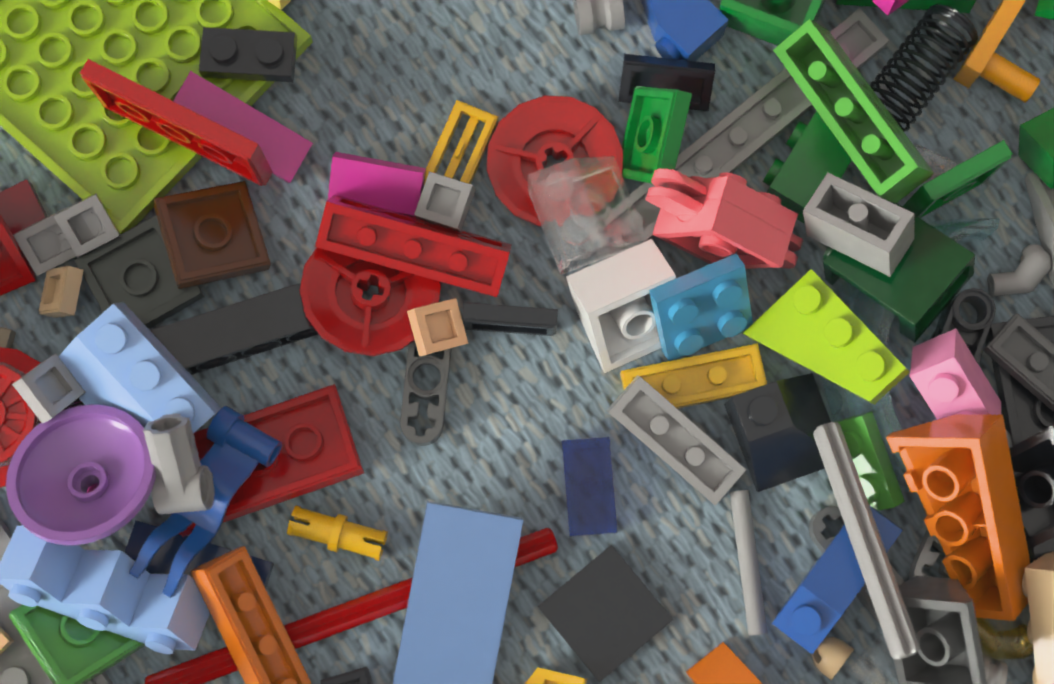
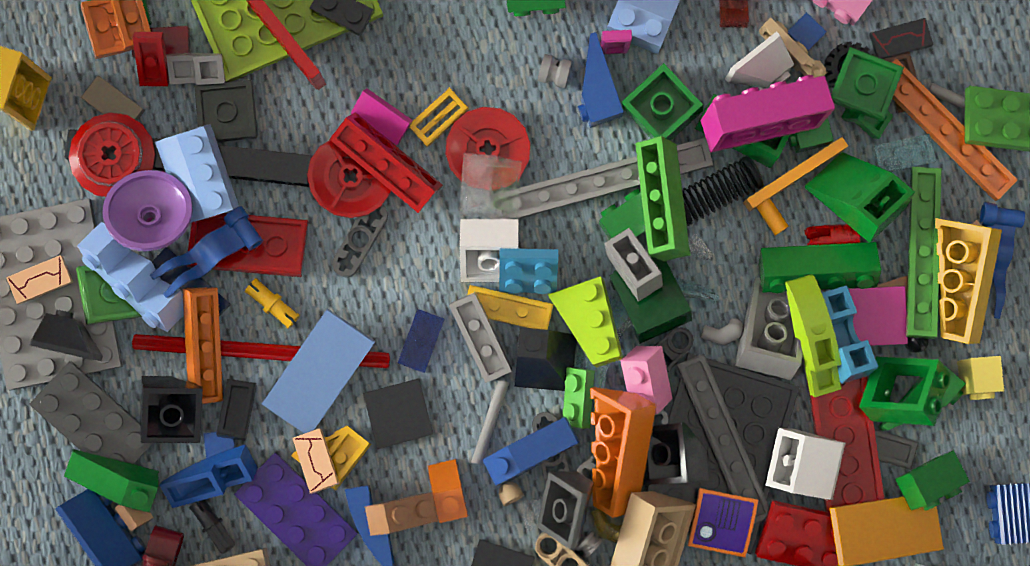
camera: 25 degrees right, 5 degrees up
(48, 388) = (149, 155): light grey plate -> none
(61, 292) = (179, 100): tan tile -> none
(180, 479) = (199, 237): light grey piece -> none
(211, 234) = (276, 104): reddish brown tile -> none
(280, 145) = (319, 50): dark pink tile -> none
(437, 327) = (377, 214): light nougat tile -> none
(445, 201) = (414, 145): light grey plate -> none
(509, 319) = (420, 228): black tile -> none
(654, 131) = (547, 161): green tile -> none
(668, 74) = (573, 131): black tile -> none
(723, 218) = (562, 228): coral brick -> none
(866, 541) = (553, 437): light grey axle -> none
(958, 180) = (706, 264): green tile -> none

